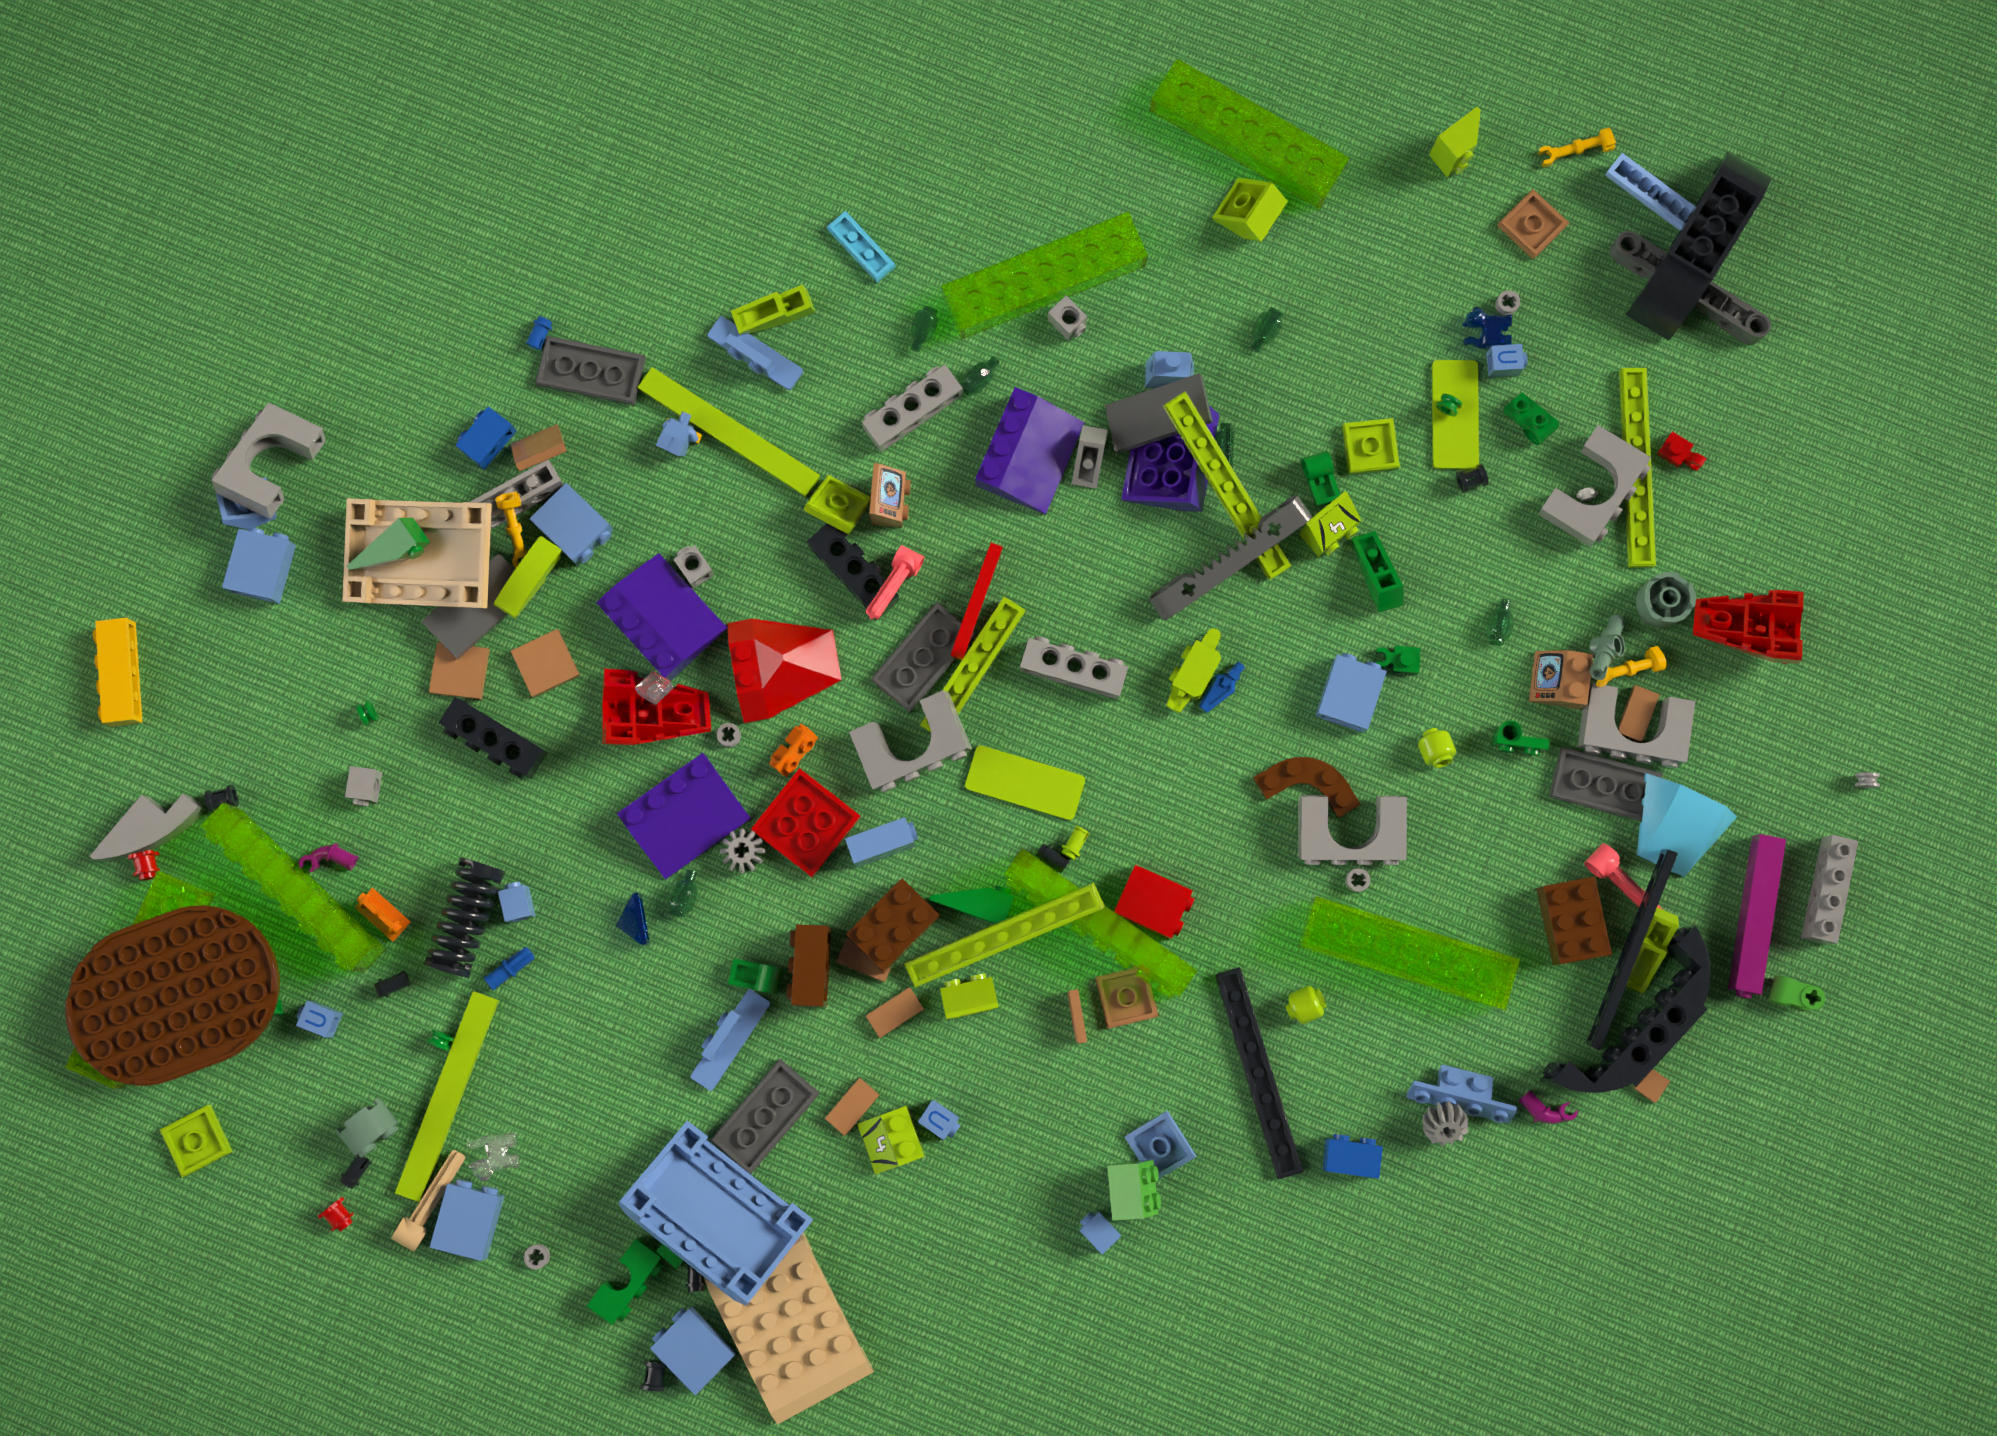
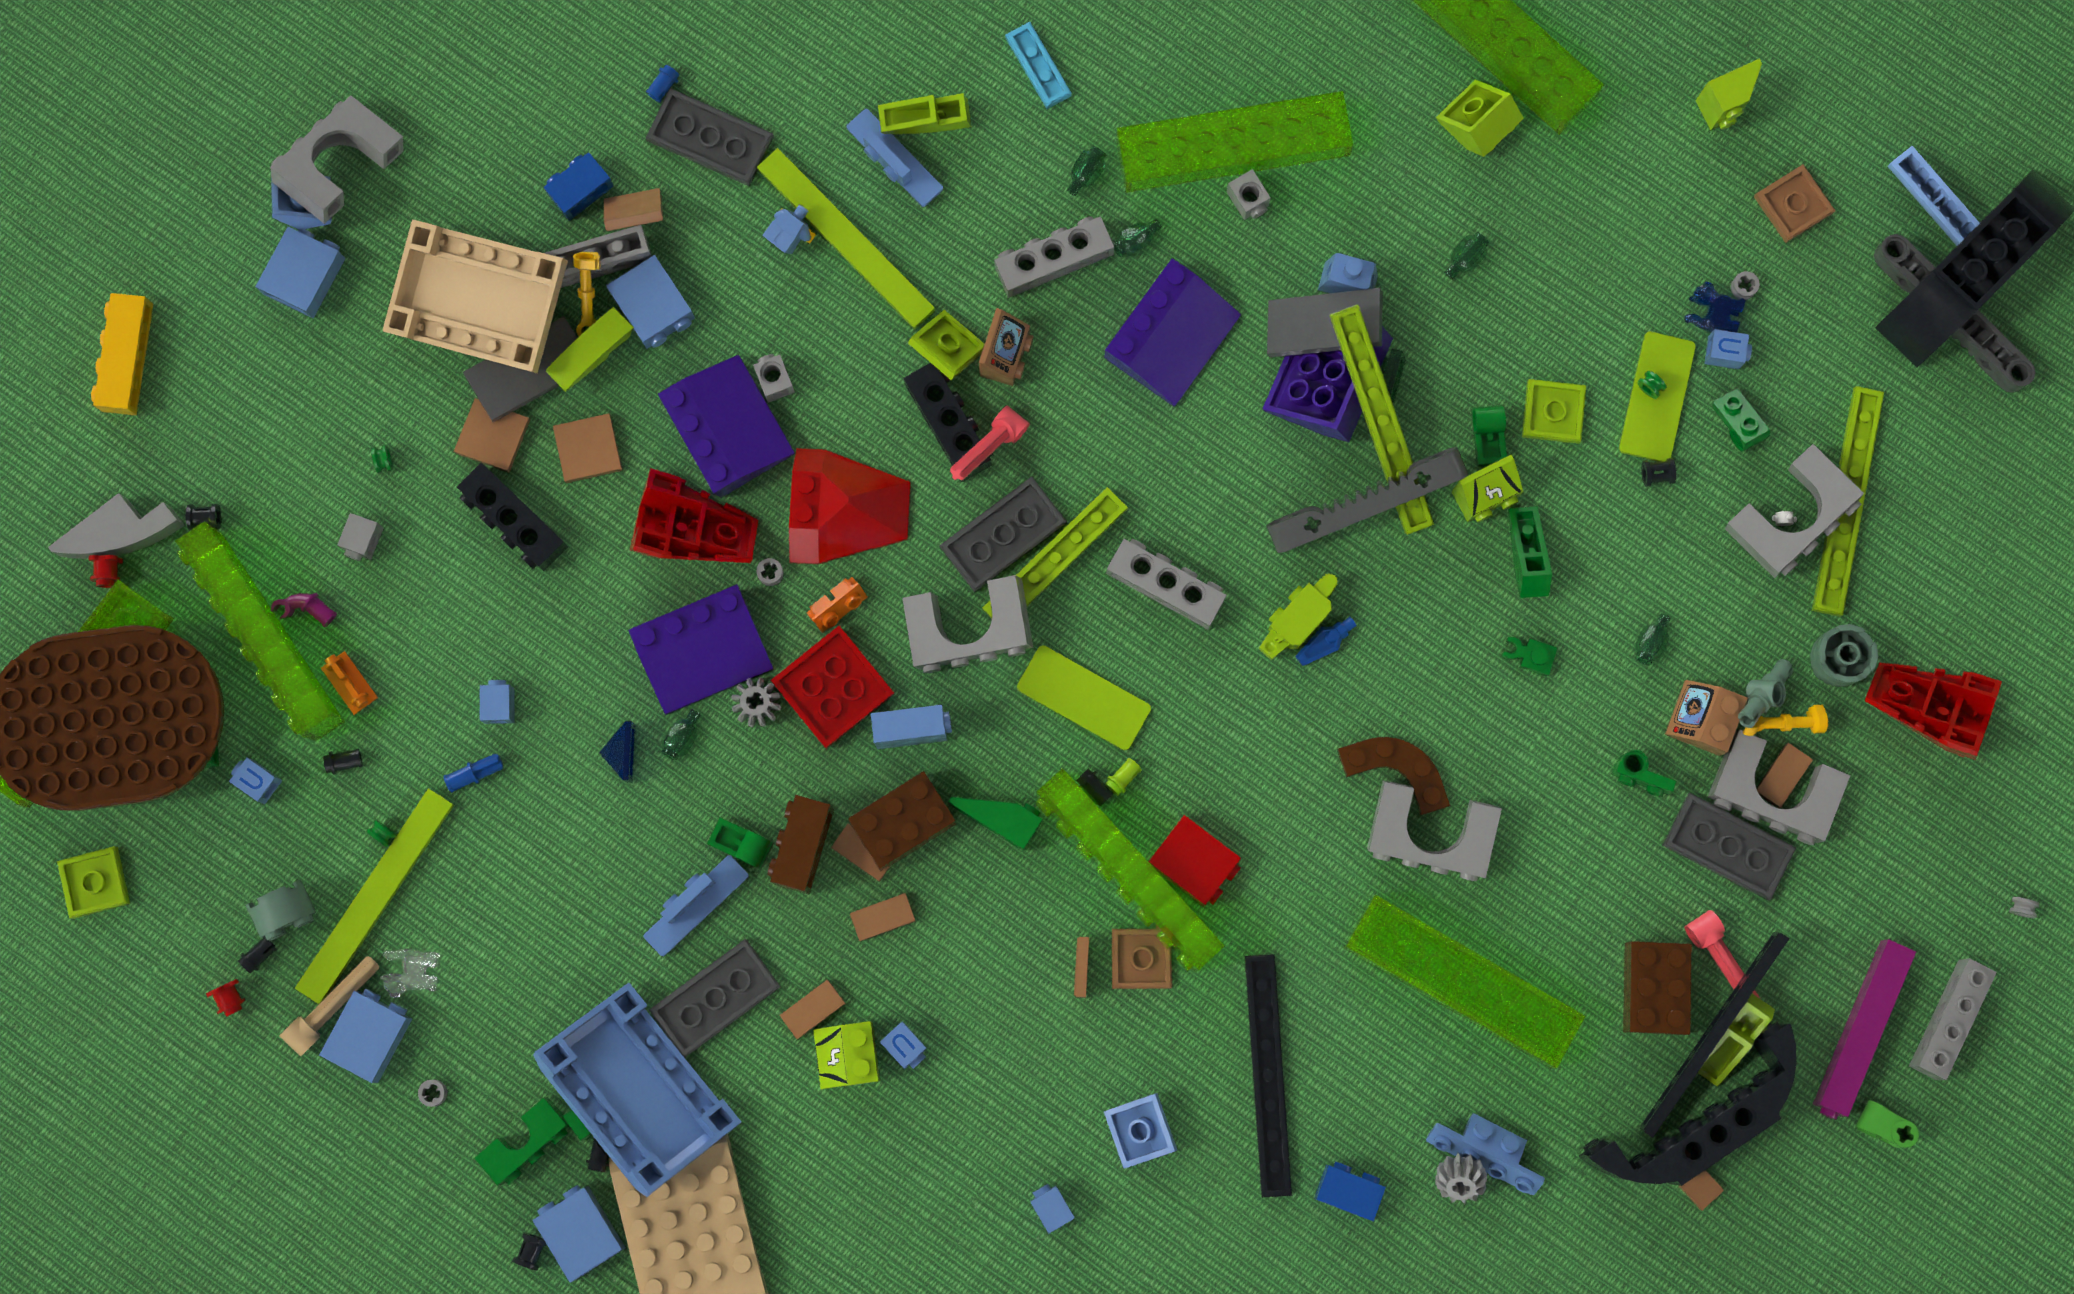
camera: 15 degrees right, 0 degrees up
(397, 543) = (455, 281): slope -> none
(447, 960) = (404, 746): black piece -> none
(654, 687) = (700, 501): clear plate -> none
(968, 997) = (967, 919): lime slope -> none
(976, 601) = (1075, 485): red beam -> none
(1004, 934) = (1021, 858): lime tile -> none
(1089, 456) = (1237, 353): light grey slope -> none
(1133, 1190) = (1099, 1171): bright green brick -> none
(1306, 1004) = (1337, 1012): lime head -> none
(1351, 692) = (1468, 679): medium blue brick -> none
(1356, 872) = (1428, 879): light grey bush -> none
(1437, 748) = (1549, 762): lime head -> none
(1544, 1114) = (1573, 1193): magenta piece -> none
(1604, 139) = (1897, 126): yellow piece -> none
(1677, 450) = (1898, 492): red plate -> none
(1679, 822) = (1802, 907): medium azure wedge -> none

